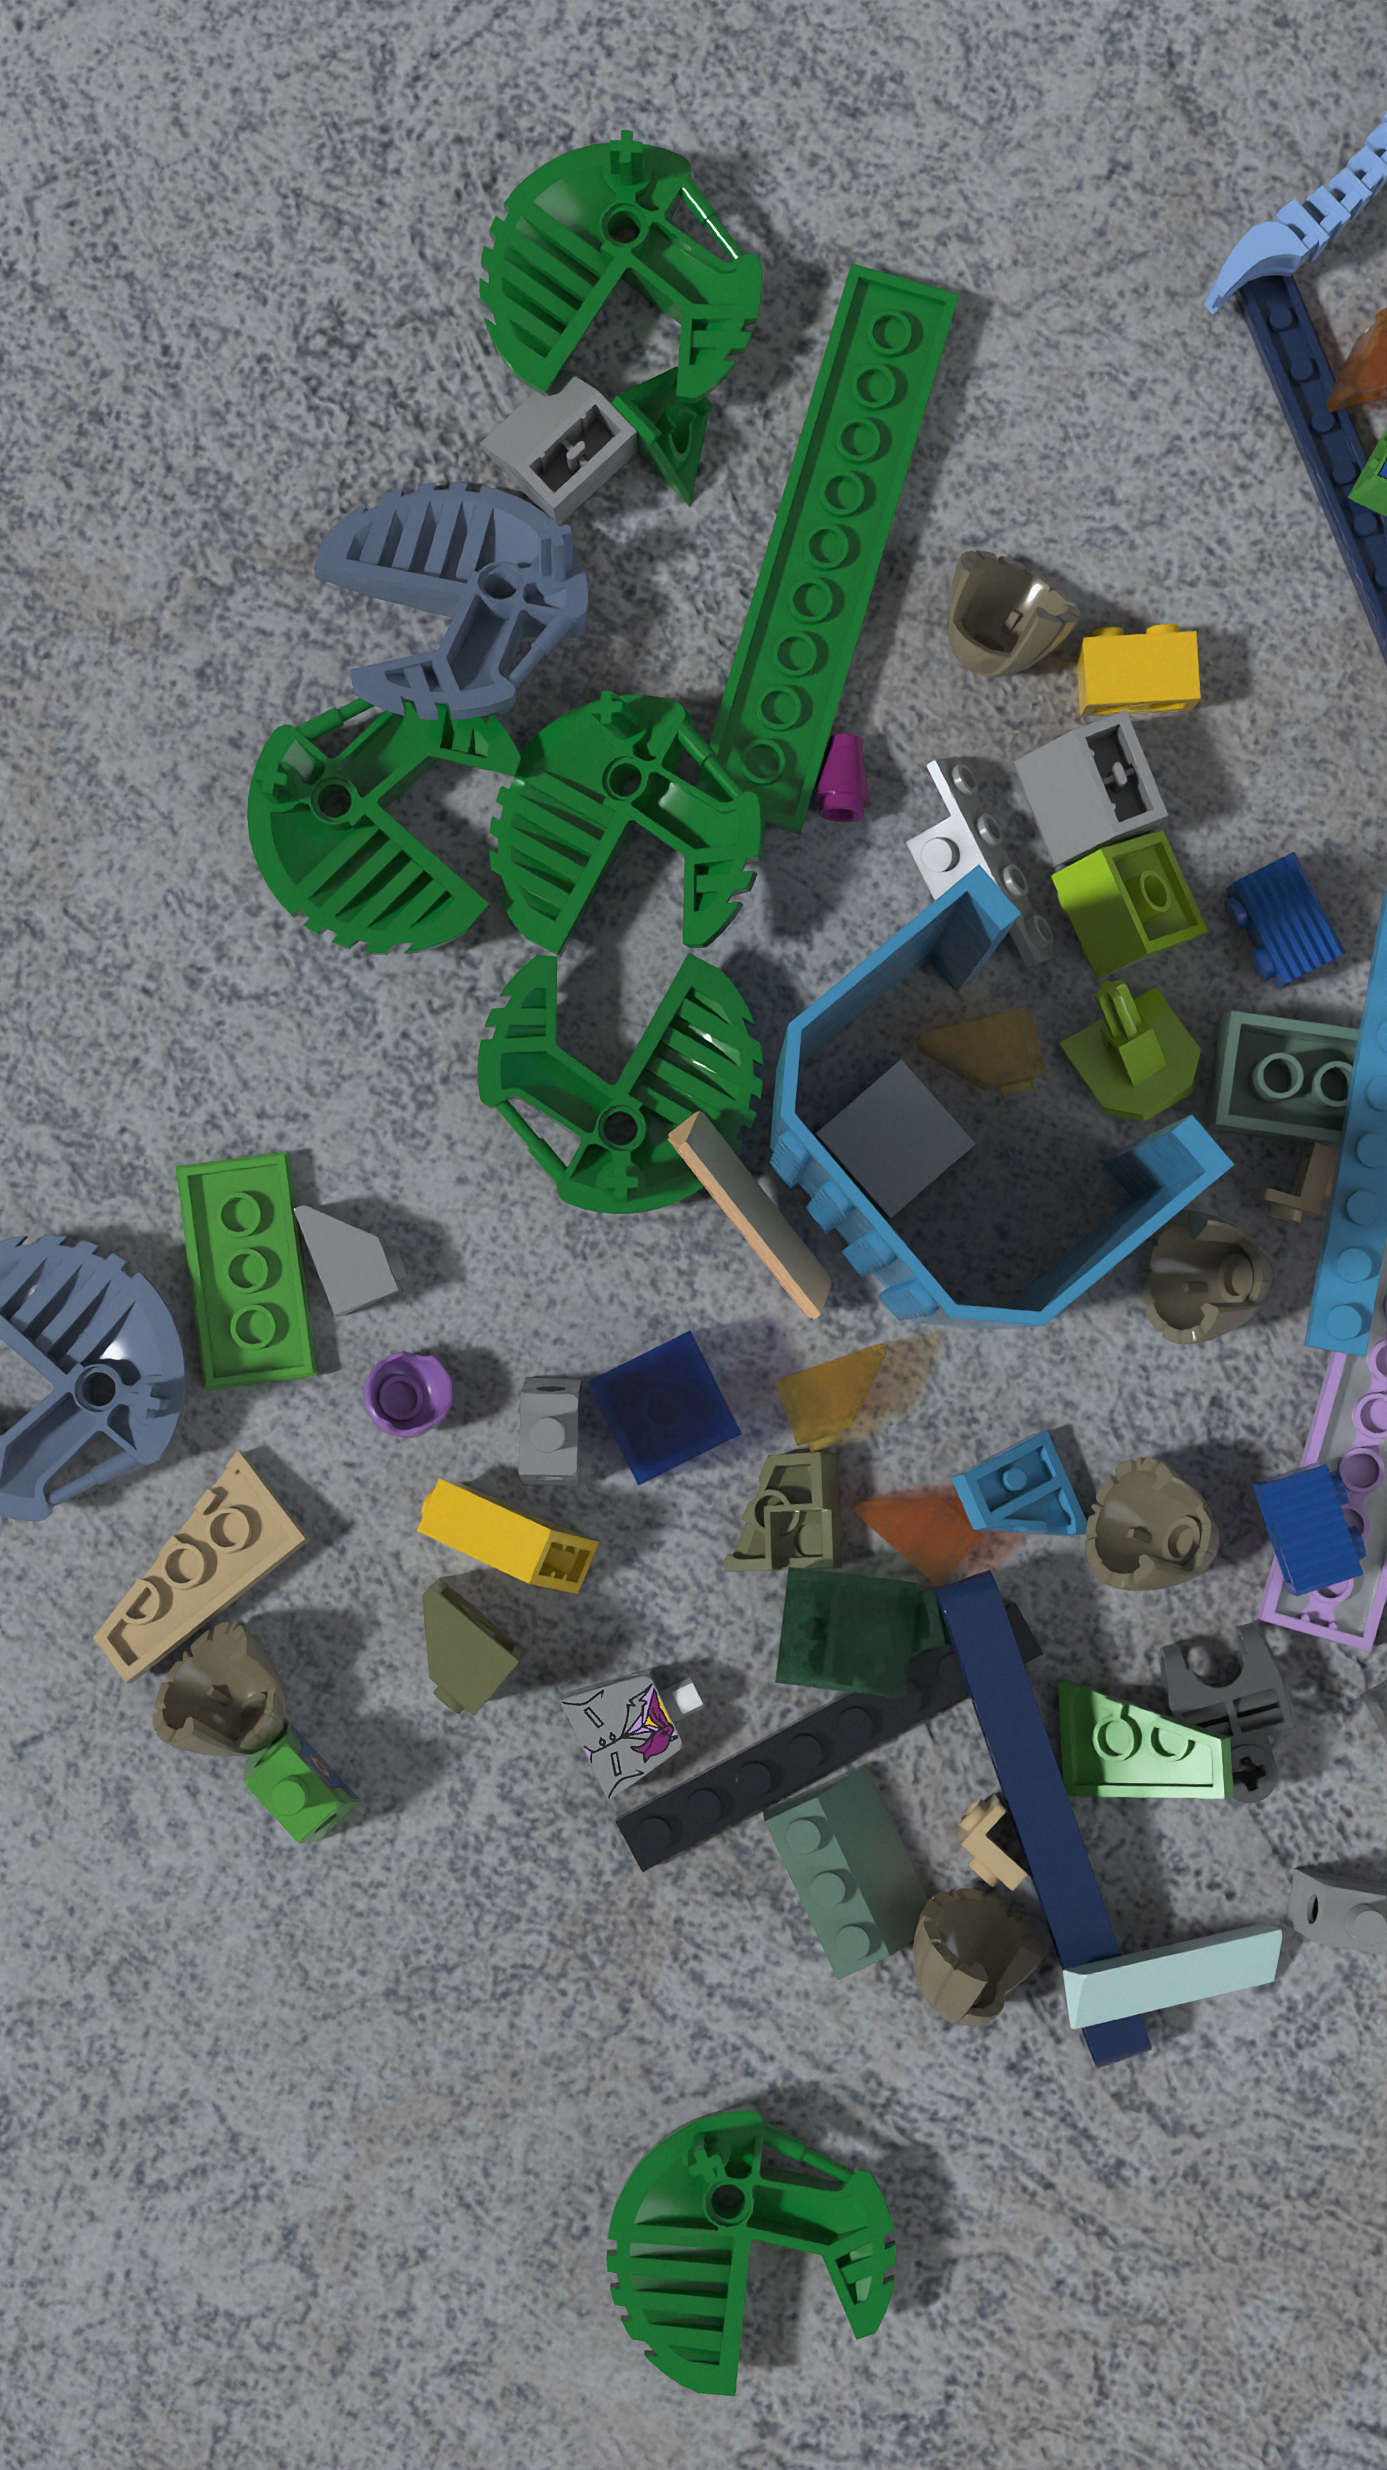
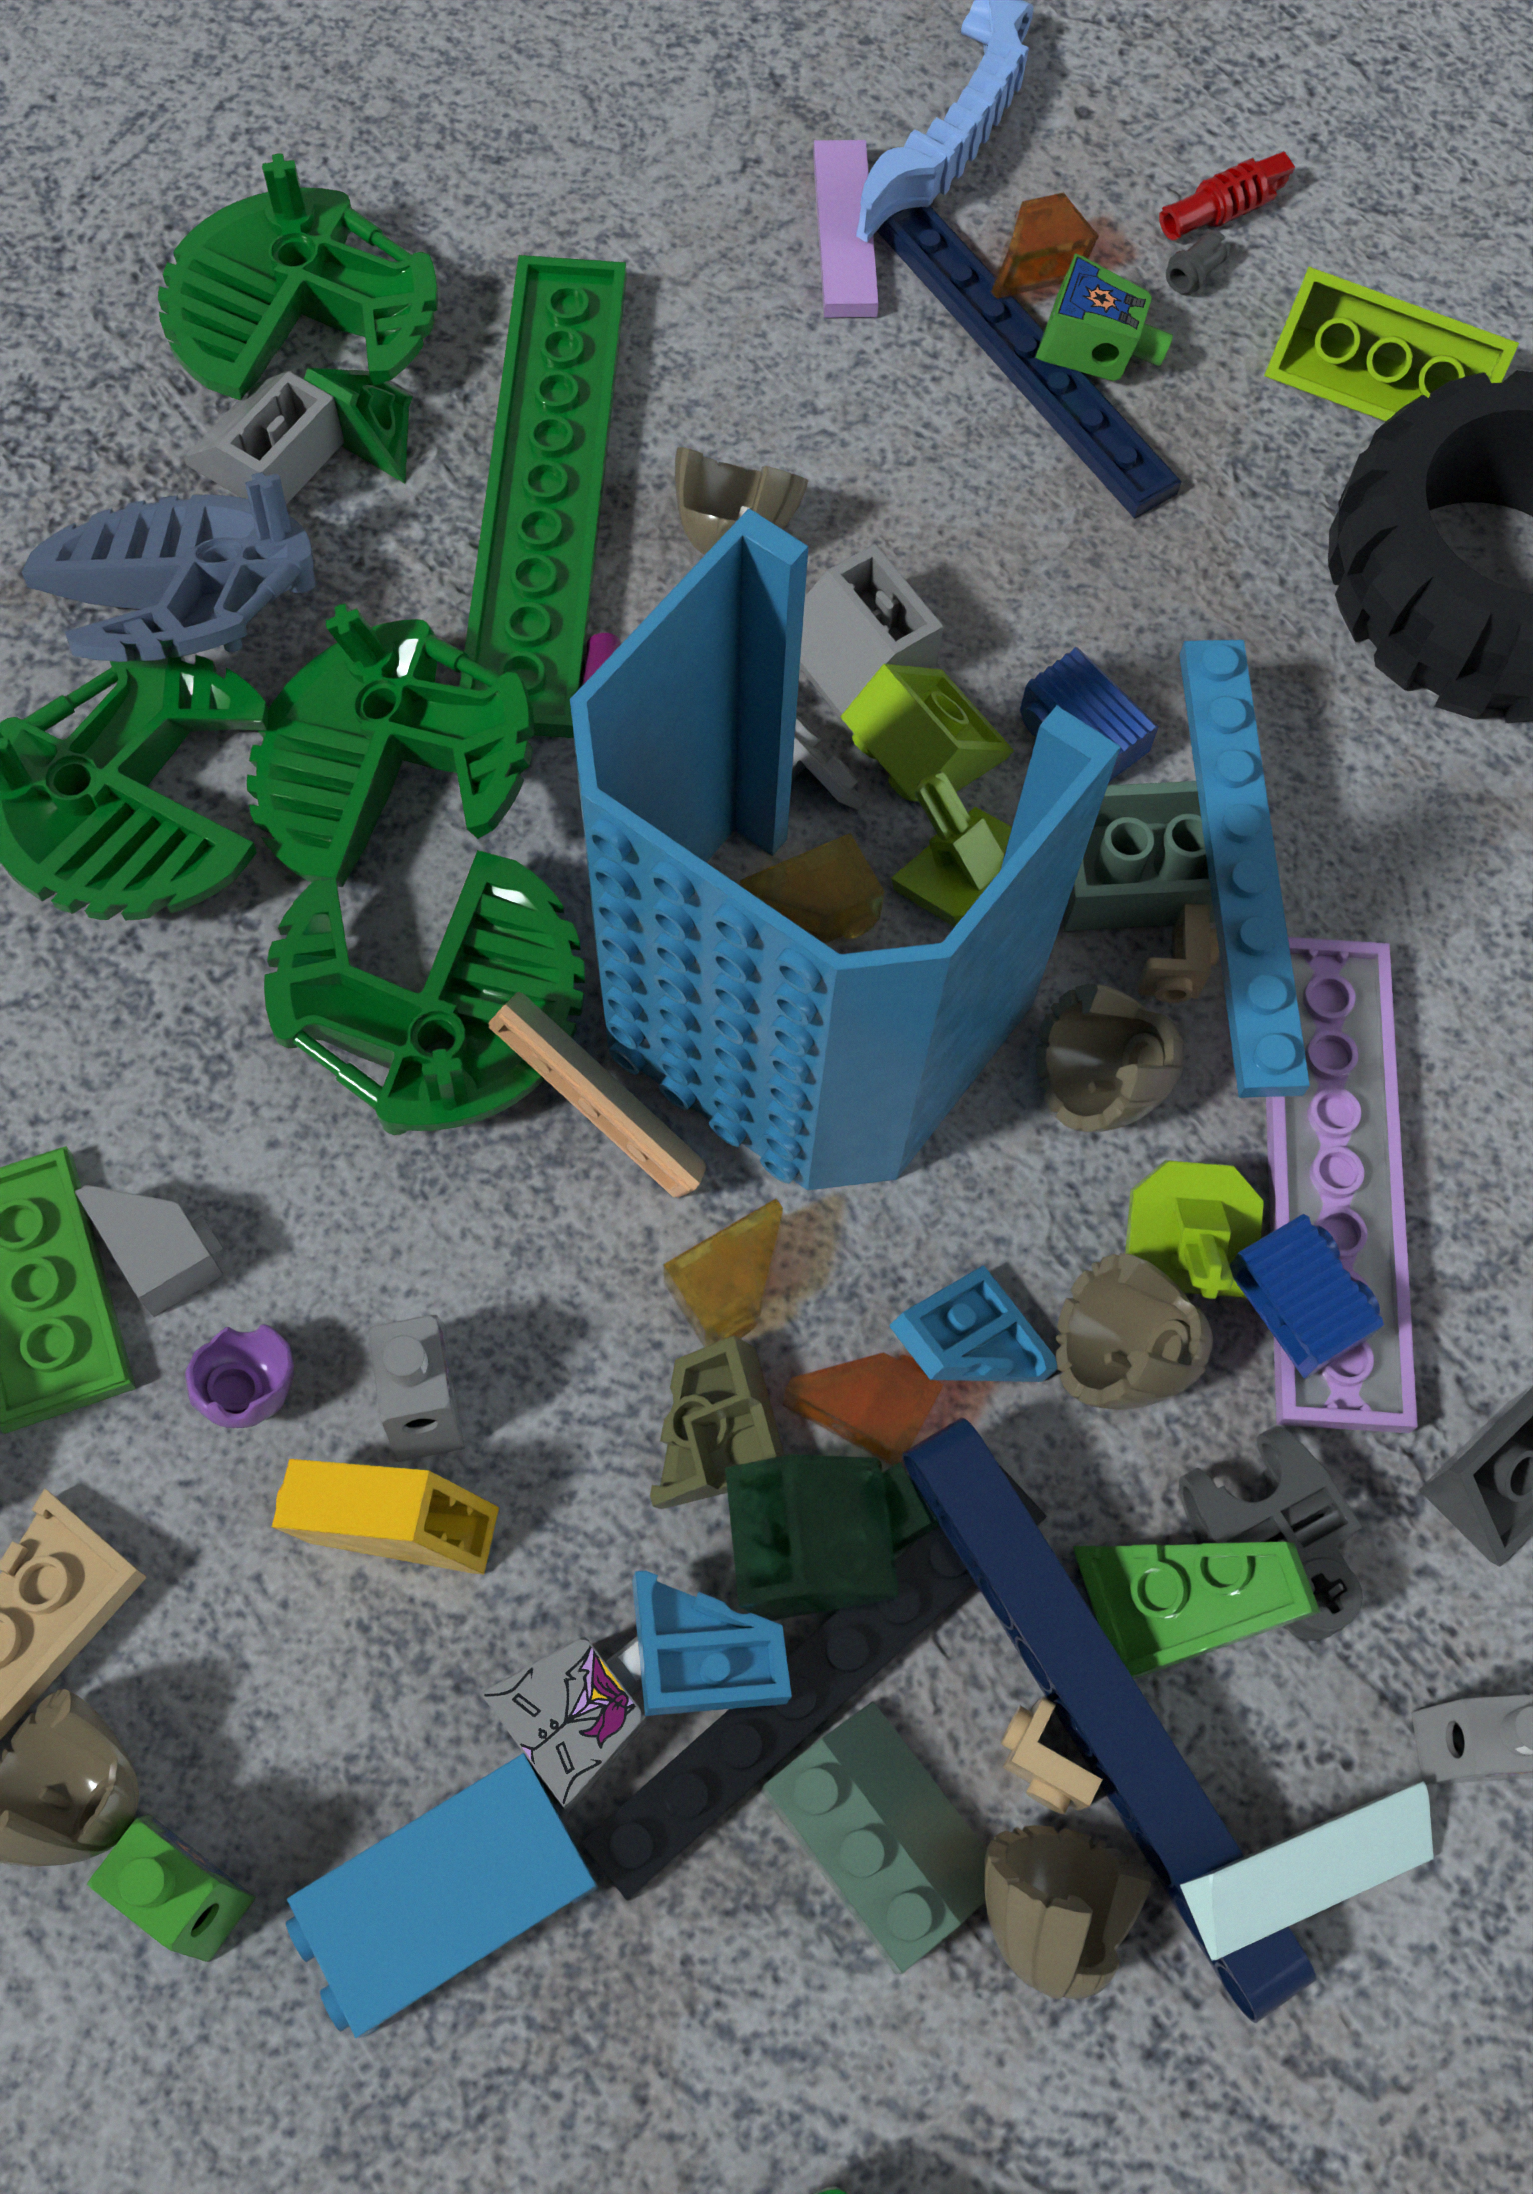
camera: 20 degrees left, 20 degrees down
(464, 1650) = (353, 1658): olive slope -> none
(503, 1840) = (437, 1896): none -> dark azure panel
(664, 1408) = (543, 1323): clear blue brick -> none
(740, 1707) = (704, 1653): none -> dark azure wing
(1138, 671) = (894, 517): yellow brick -> none
(1200, 250) = (845, 260): none -> lavender tile
(1232, 1439) = (1194, 1223): none -> lime piece

